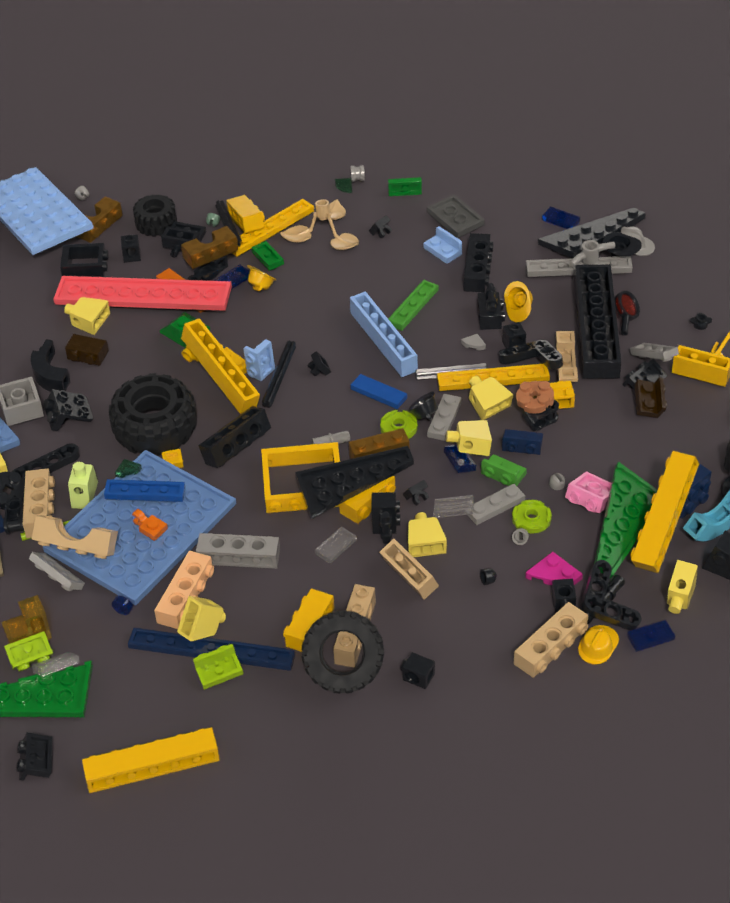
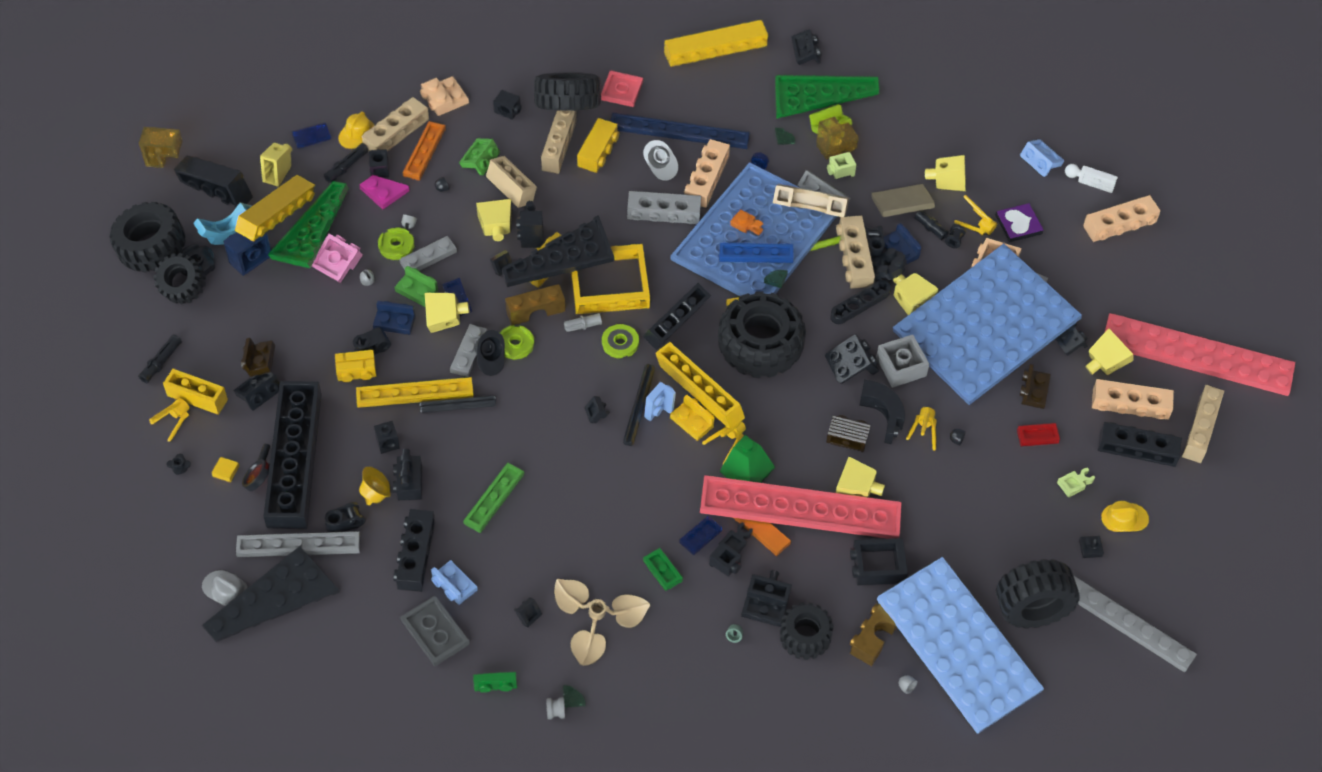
camera: 175 degrees right, 10 degrees up
(11, 362) = (925, 419): none -> yellow plant
(28, 591) = (842, 165): none -> yellowish green brick
(56, 663) = (794, 119): clear tile -> none
(85, 478) = (817, 262): yellowish green torso -> none
(88, 643) = (784, 137): none -> clear green tile
(130, 248) = (827, 578): black brick -> none
(200, 253) = (741, 539): pearl gold arch -> none
(200, 618) = (687, 137): light yellow torso -> none
(217, 666) = (671, 107): lime bracket -> none
(227, 219) = (714, 617): black axle -> none
(235, 604) = (661, 159): none -> light grey piece
(245, 213) = (693, 625): yellow brick -> none
(259, 279) = (667, 530): yellow piece -> none
(274, 225) = (662, 617): yellow plate -> none
(277, 696) = (621, 88): none -> coral plate
(290, 419) = (617, 332): none -> lime tile
(335, 545) = (576, 217): clear tile -> none
(378, 391) = (534, 381): blue tile -> none
(383, 334) = (528, 440): light blue brick -> none
(448, 608) = (480, 155): none -> bright green bracket
(452, 506) = (467, 245): clear tile -> none
(473, 342) = (430, 441): light grey tile -> none
(489, 396) = (421, 361): light yellow torso -> none
(498, 687) = (443, 95): none -> light nougat plate
(513, 621) = (424, 150): none -> orange tile
(541, 348) = (367, 423): black beam -> none
(543, 282) = (345, 518): none -> black piece
(544, 395) = (375, 336): nougat plate -> none
(560, 218) = (305, 628): clear blue plate -> none
(566, 347) = (335, 410): tan slope -> none
(590, 252) = (279, 538): light grey piece -> none
(599, 599) = (346, 147): black beam -> none
(624, 244) = (242, 558): black piece -> none
(654, 351) = (241, 405): light grey plate -> none
(657, 320) = (225, 469): none -> yellow tile

